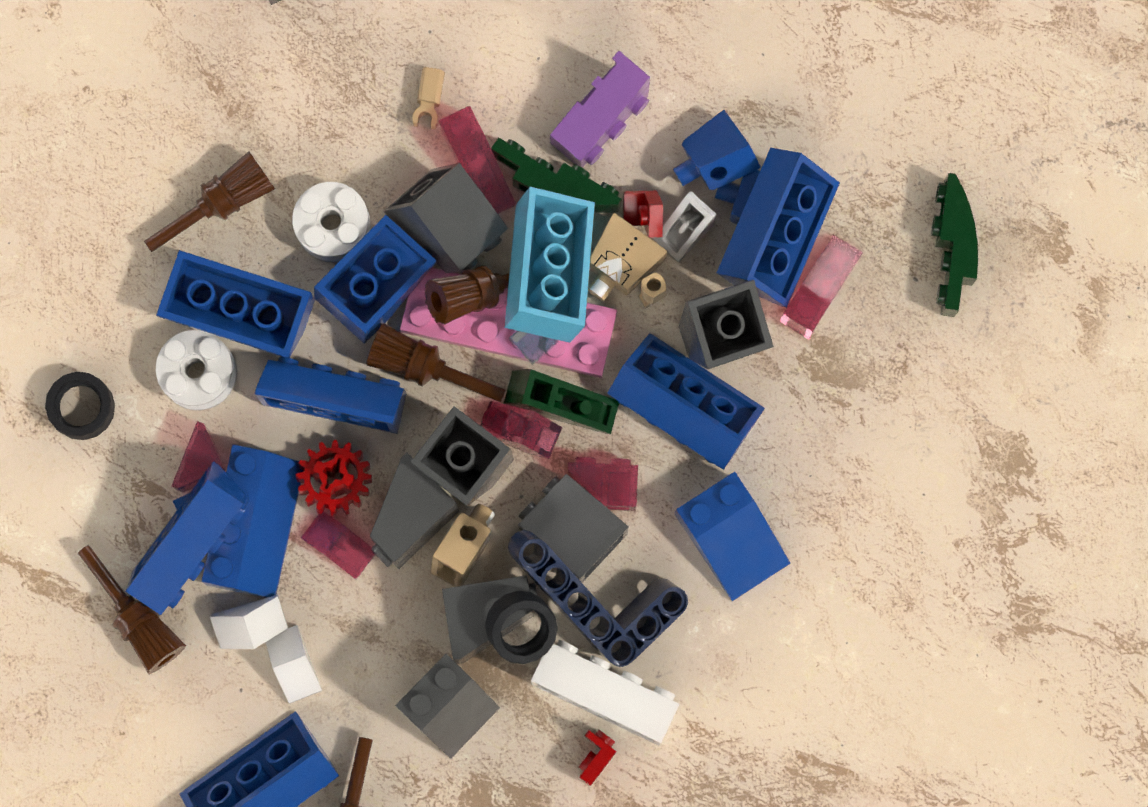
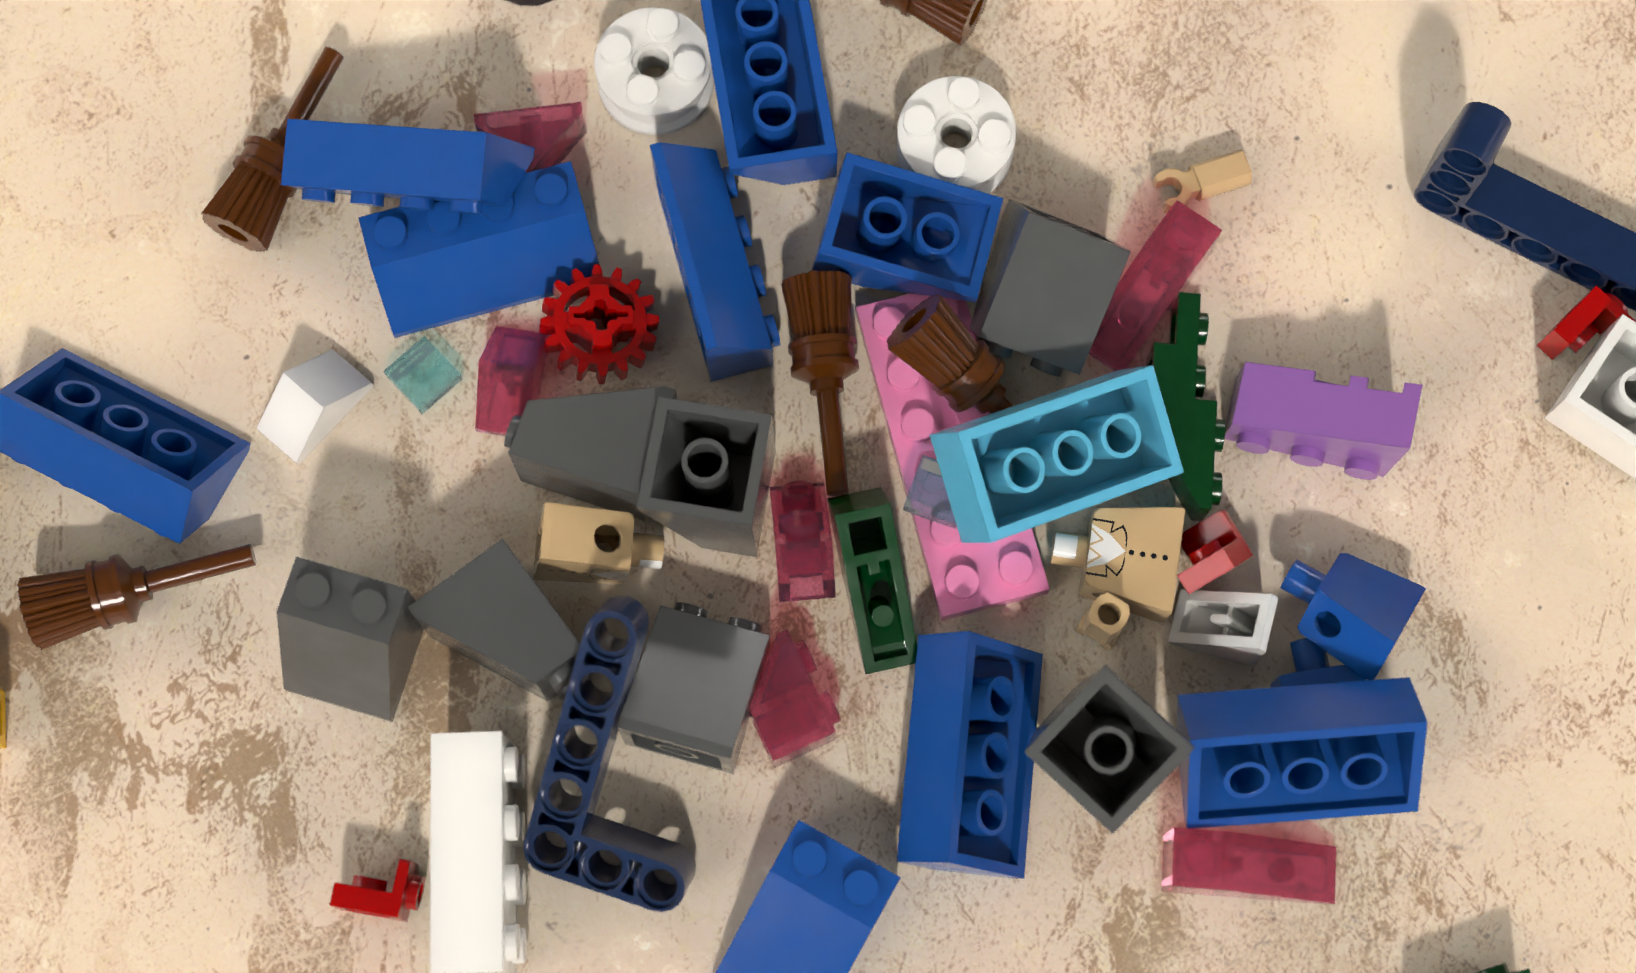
camera: 60 degrees right, 5 degrees down
(249, 624) = (340, 319): white slope -> none
(307, 593) = (423, 375): none -> clear light blue tile
(535, 647) = (466, 702): black tyre -> none

